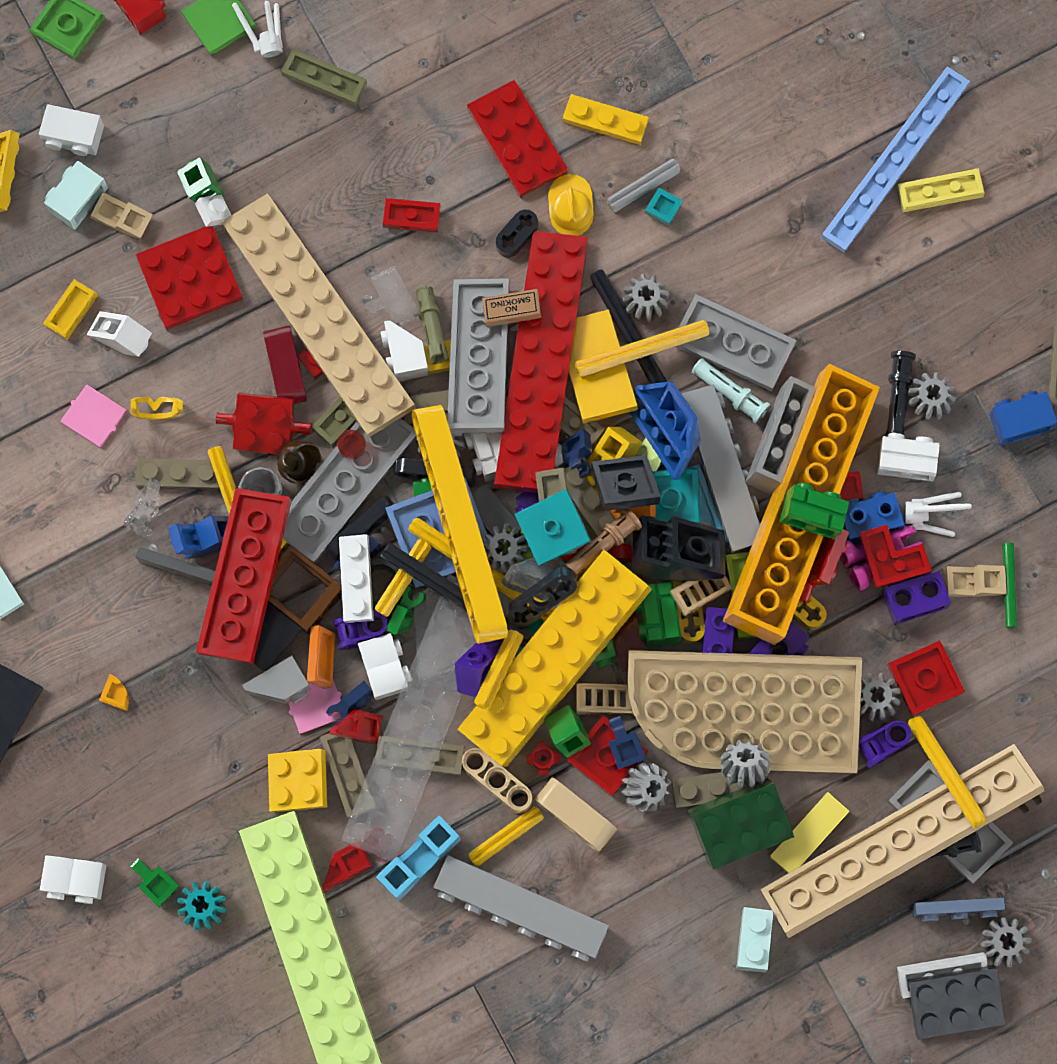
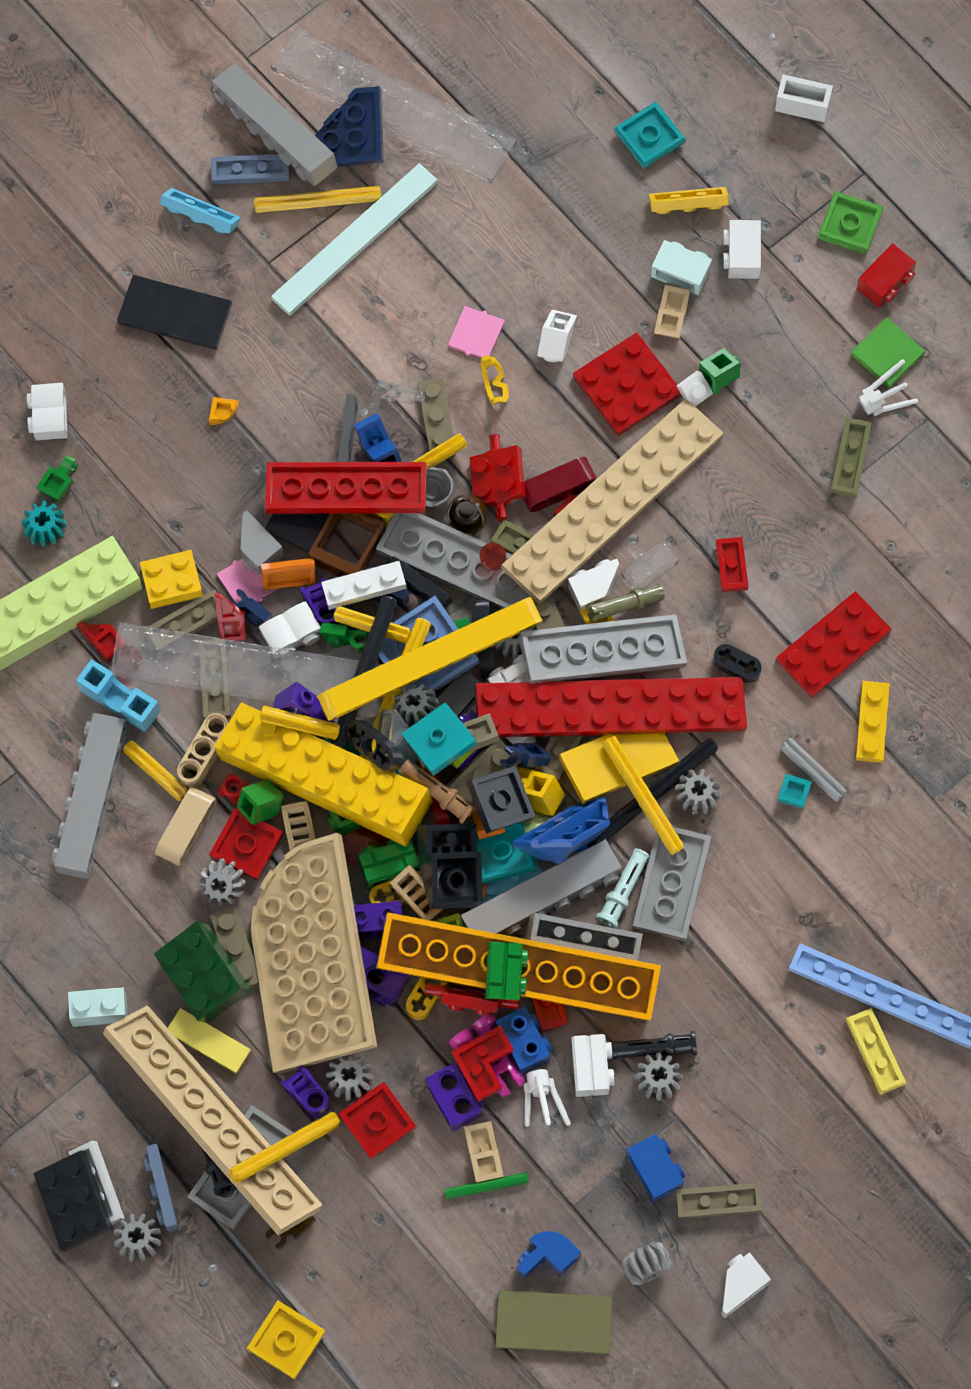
camera: 75 degrees right, 5 degrees down
(70, 309) = (572, 290): yellow tile -> none
(511, 307) = (654, 667): medium nougat tile -> none
(570, 205) = (778, 707): yellow piece -> none
(625, 748) = (253, 854): dark blue plate -> none
(745, 764) = (256, 961): light grey gear -> none

